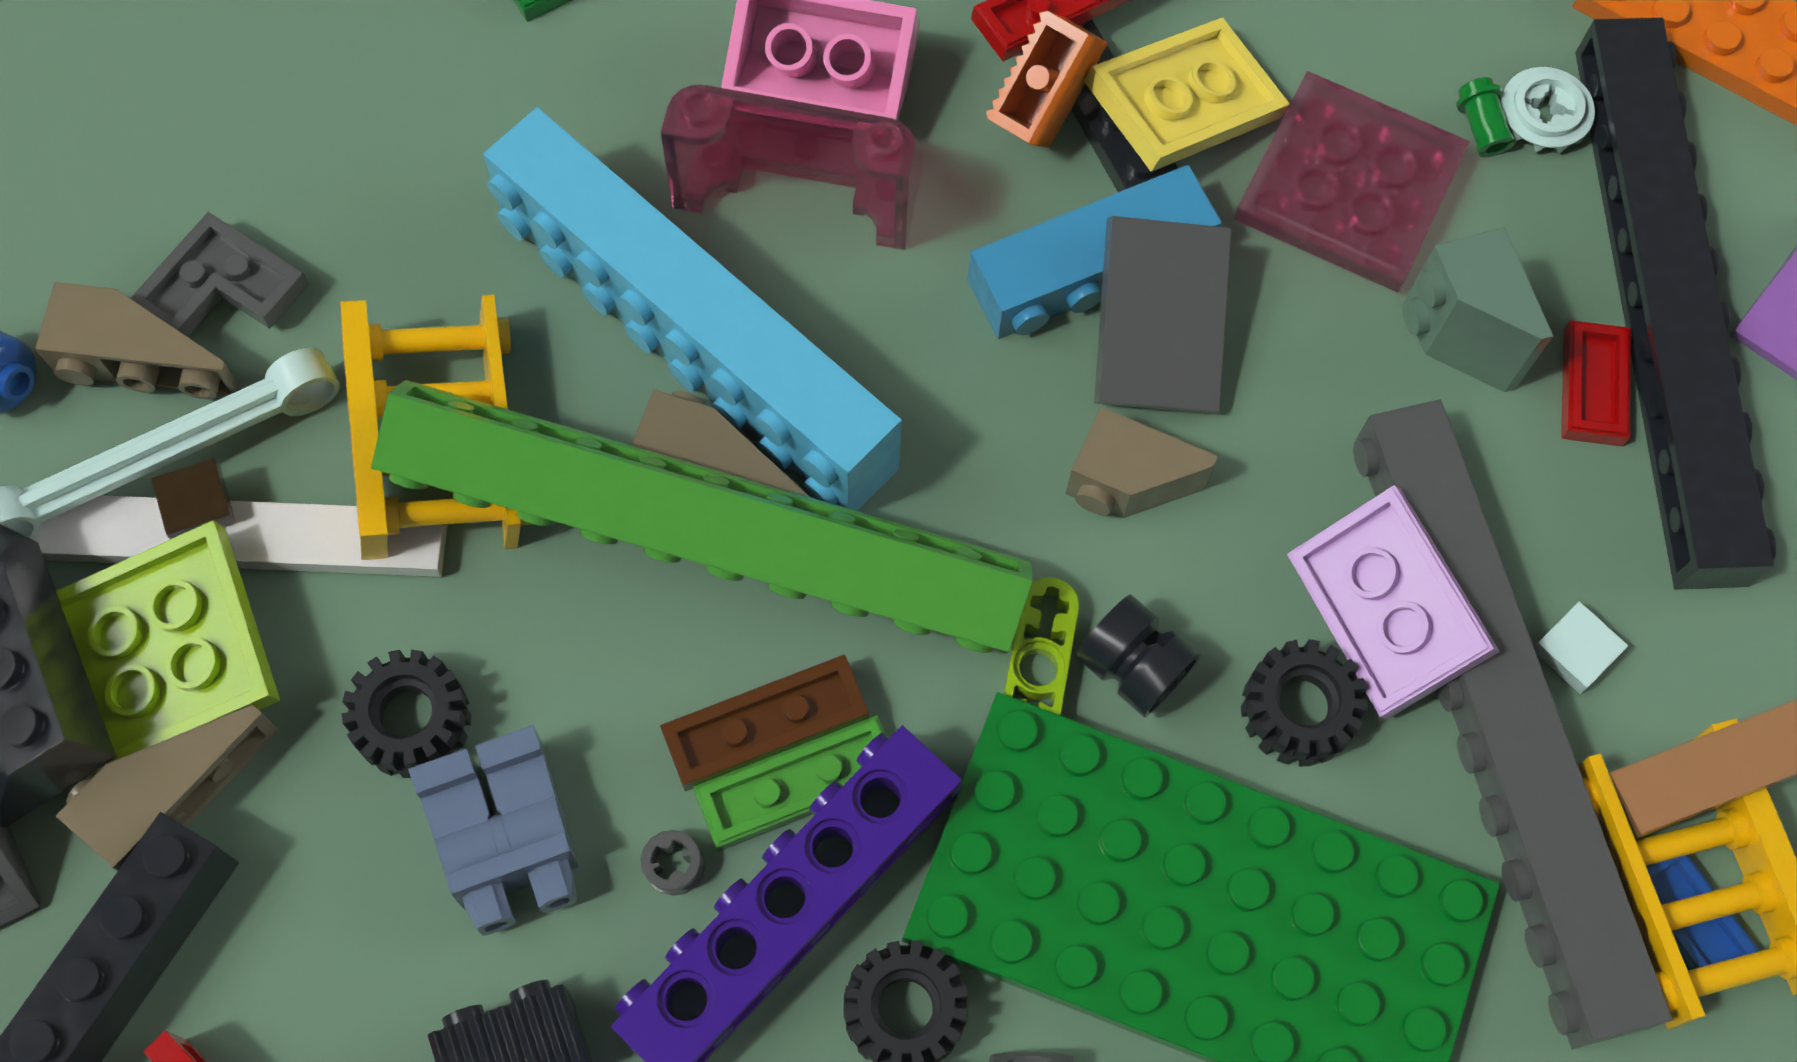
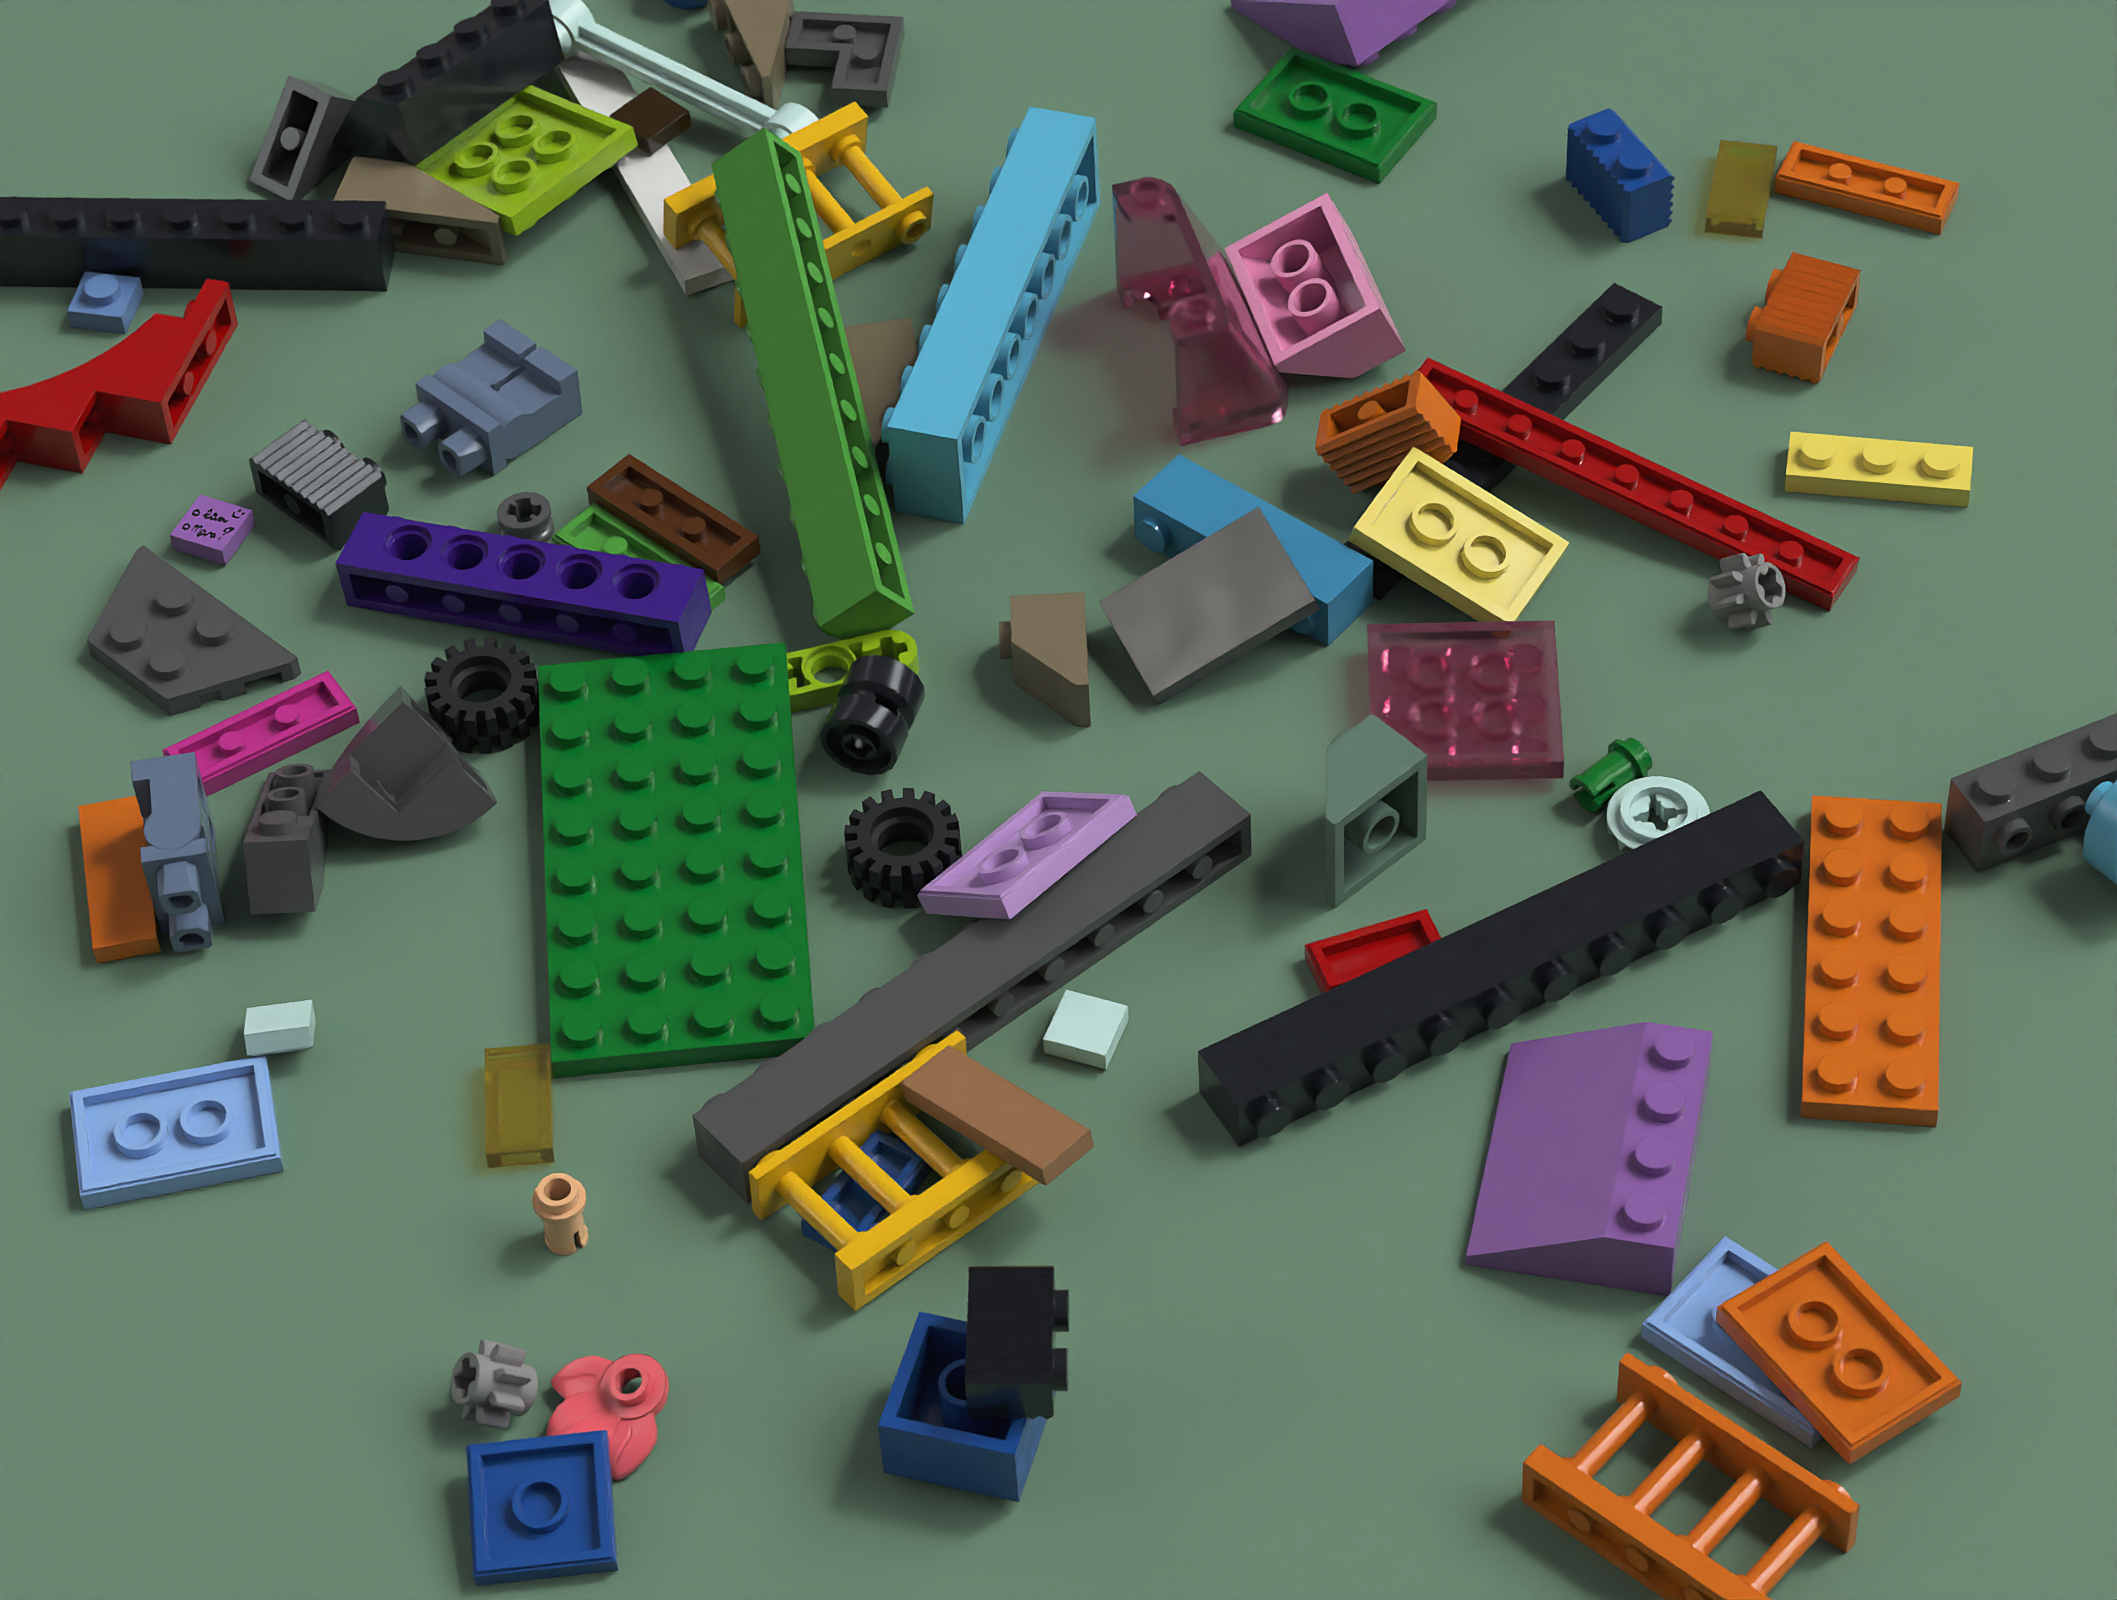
camera: 70 degrees right, 20 degrees down
(382, 684) = (558, 293): black tyre -> none

